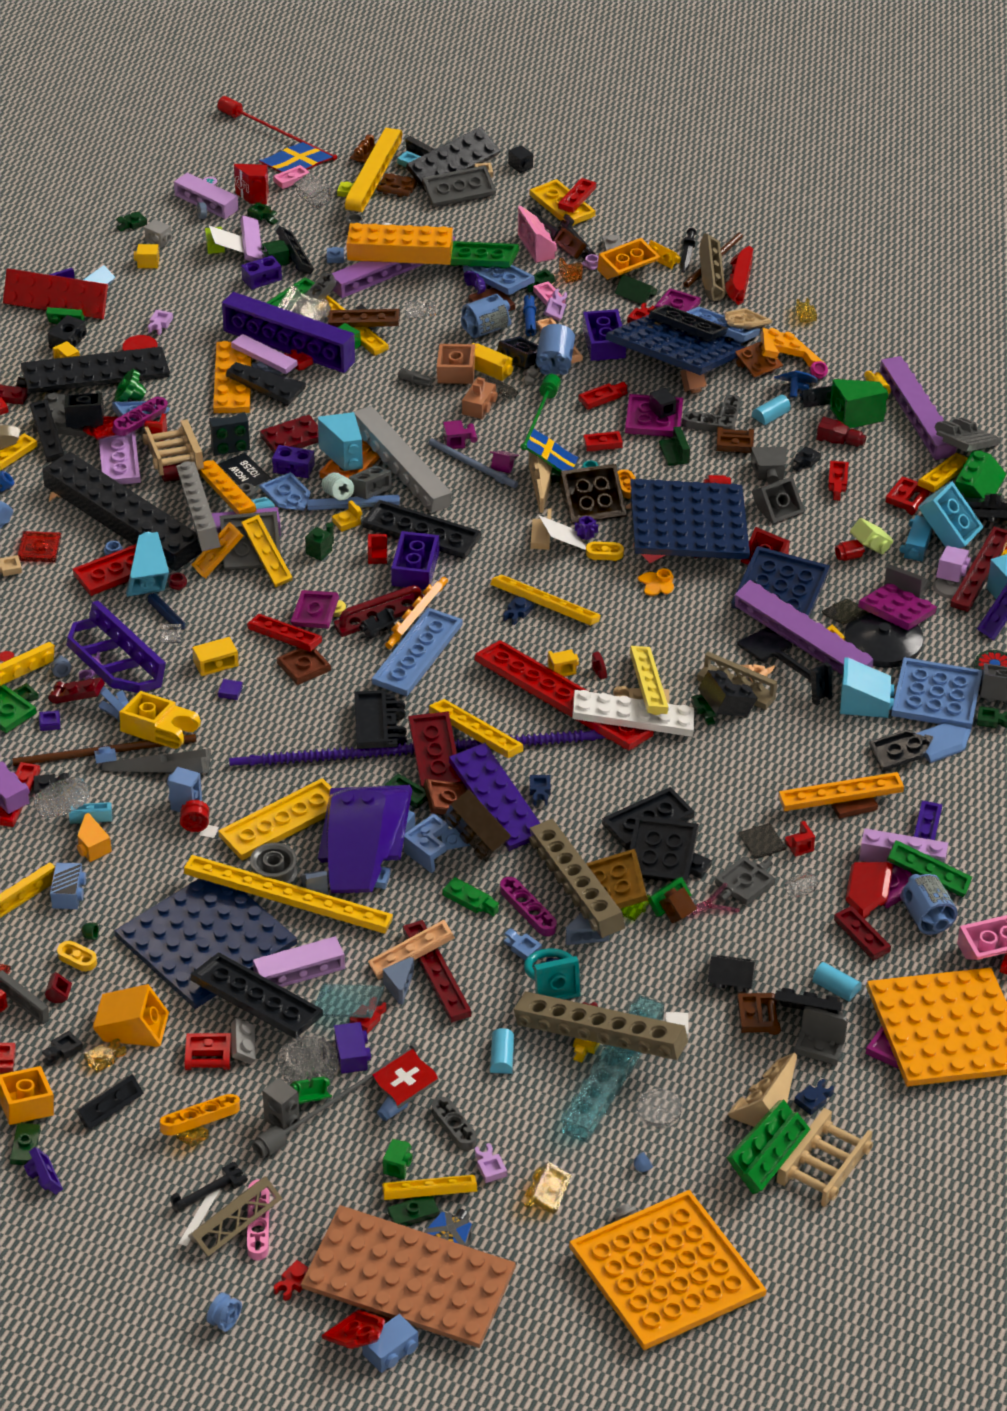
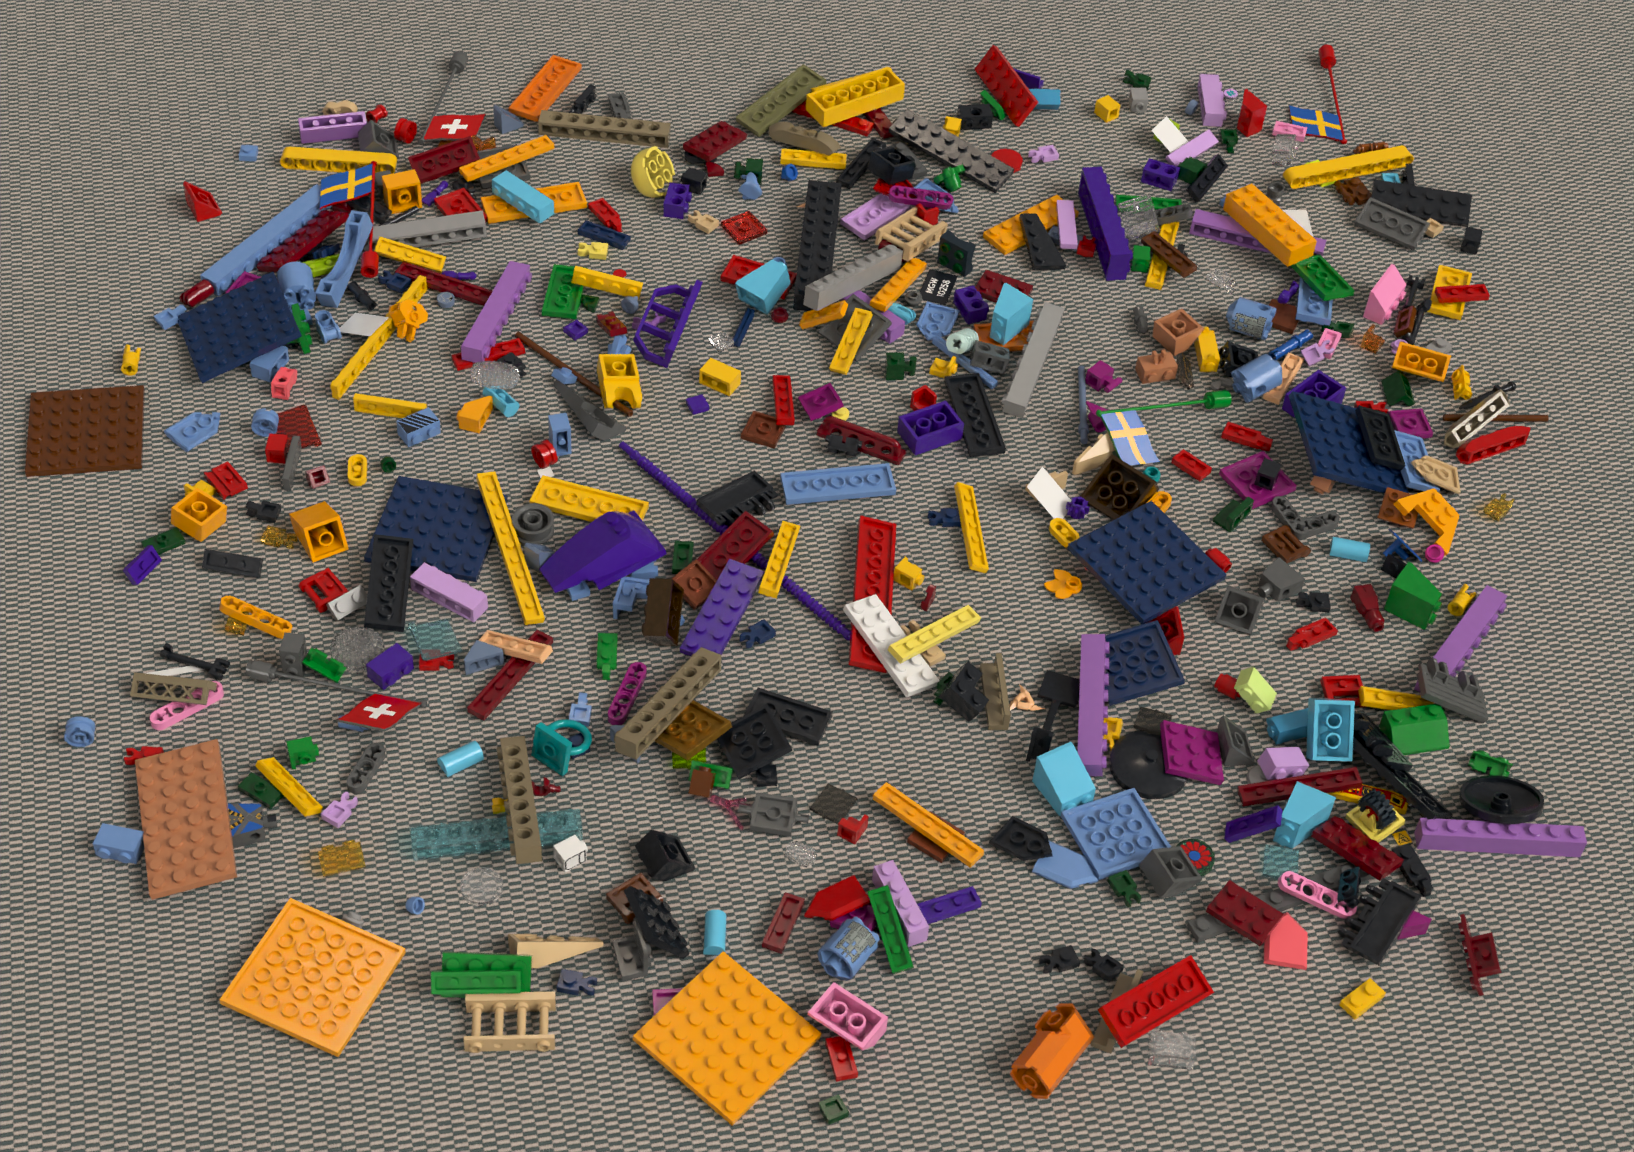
camera: 50 degrees right, 5 degrees up
(356, 1330) = (111, 815): red tile -> none
(419, 605) = (882, 457): light orange plate -> none

